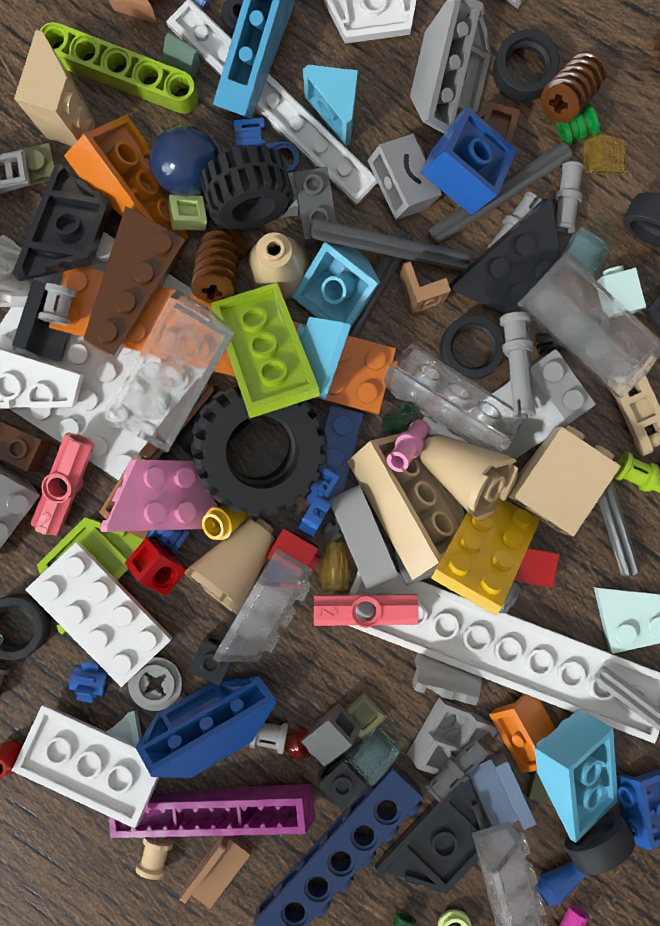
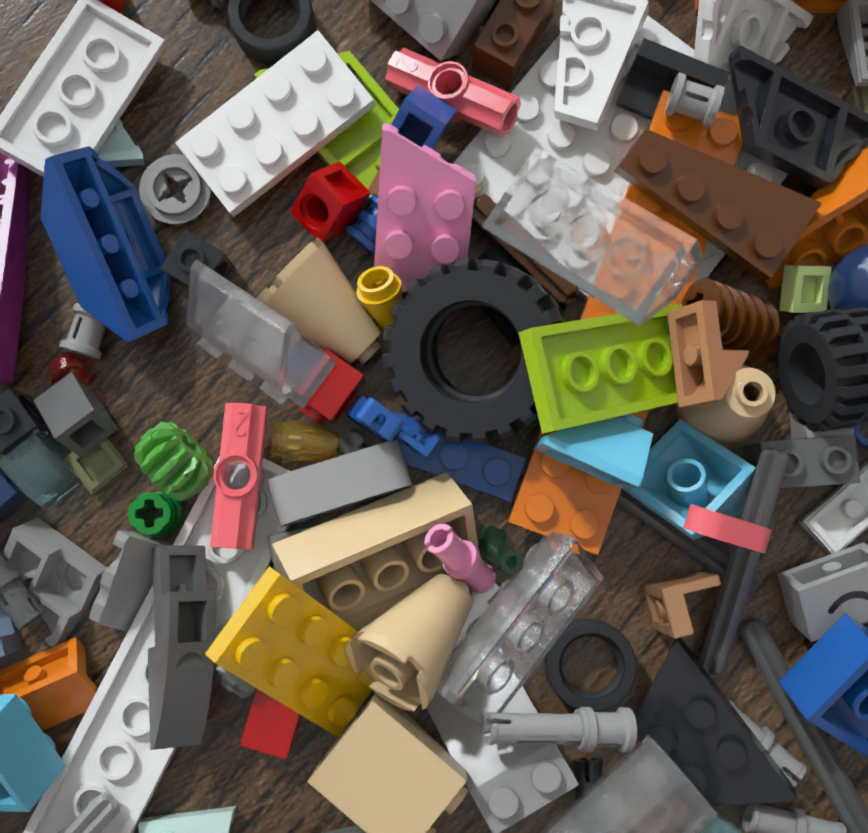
camera: 95 degrees right, 5 degrees down
(89, 503) = (423, 118): none -> blue brick
(89, 680) = (188, 102): blue gear -> none
(255, 287) = (700, 364): none -> nougat slope
(358, 658) = (174, 461): none -> bright green gear
(371, 259) = (727, 528): none -> coral beam
(387, 663) = (159, 527): none -> green bush
(484, 634) = (184, 630): none -> dark grey slope

